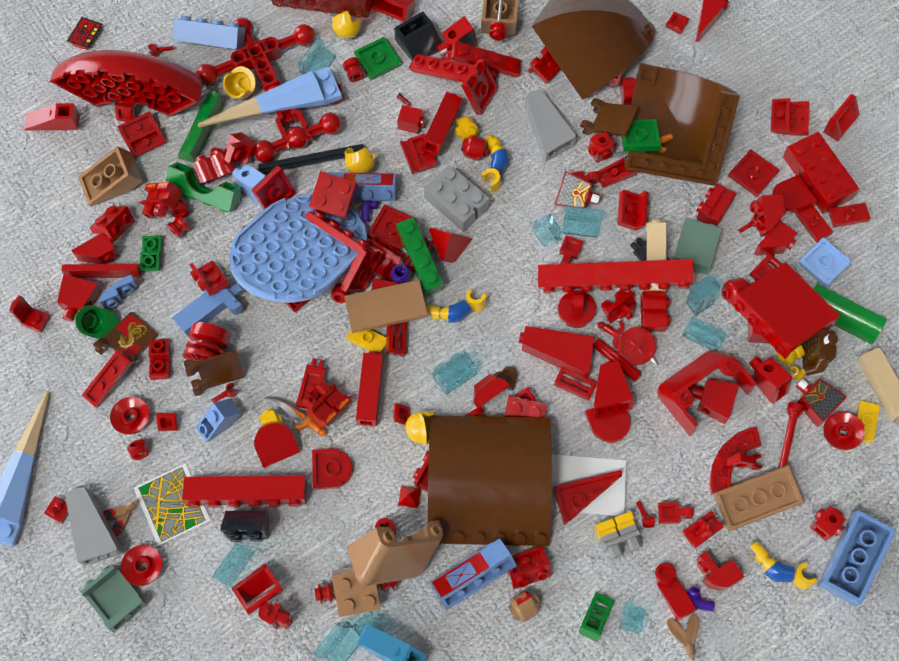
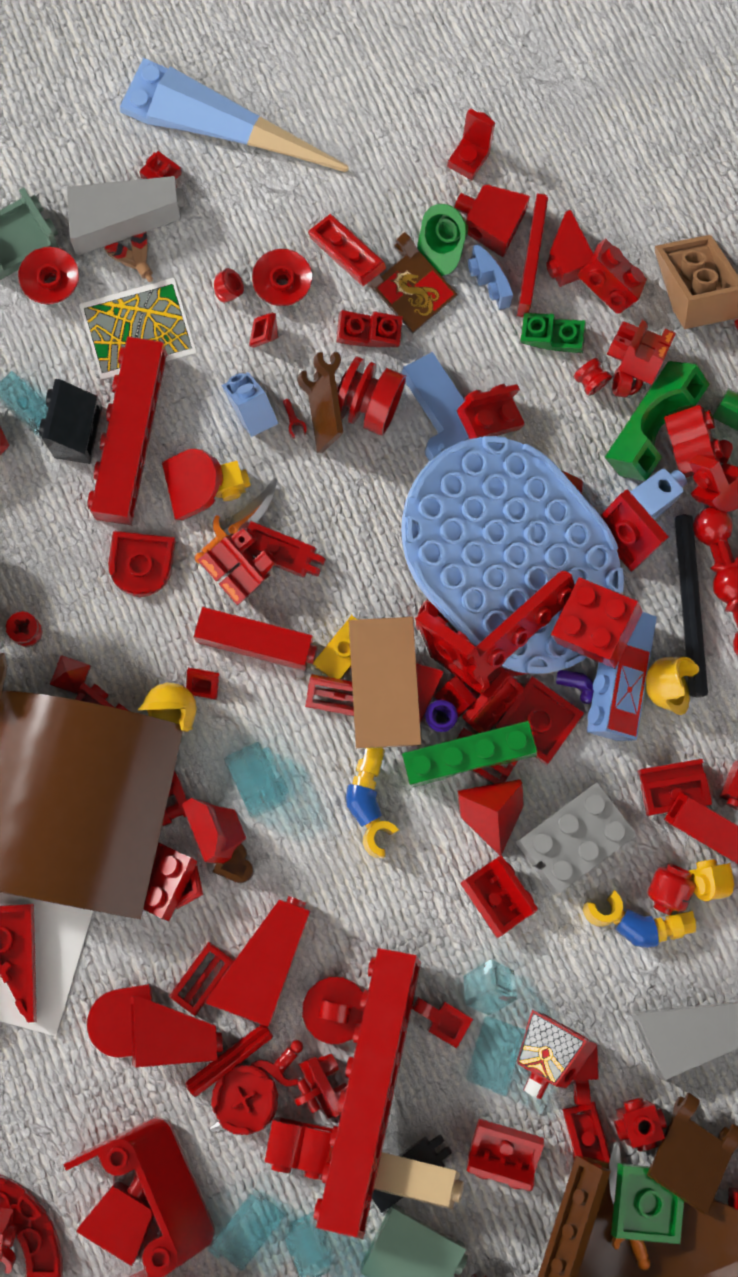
camera: 95 degrees right, 10 degrees up
(495, 232) = (499, 896): none -> red bracket

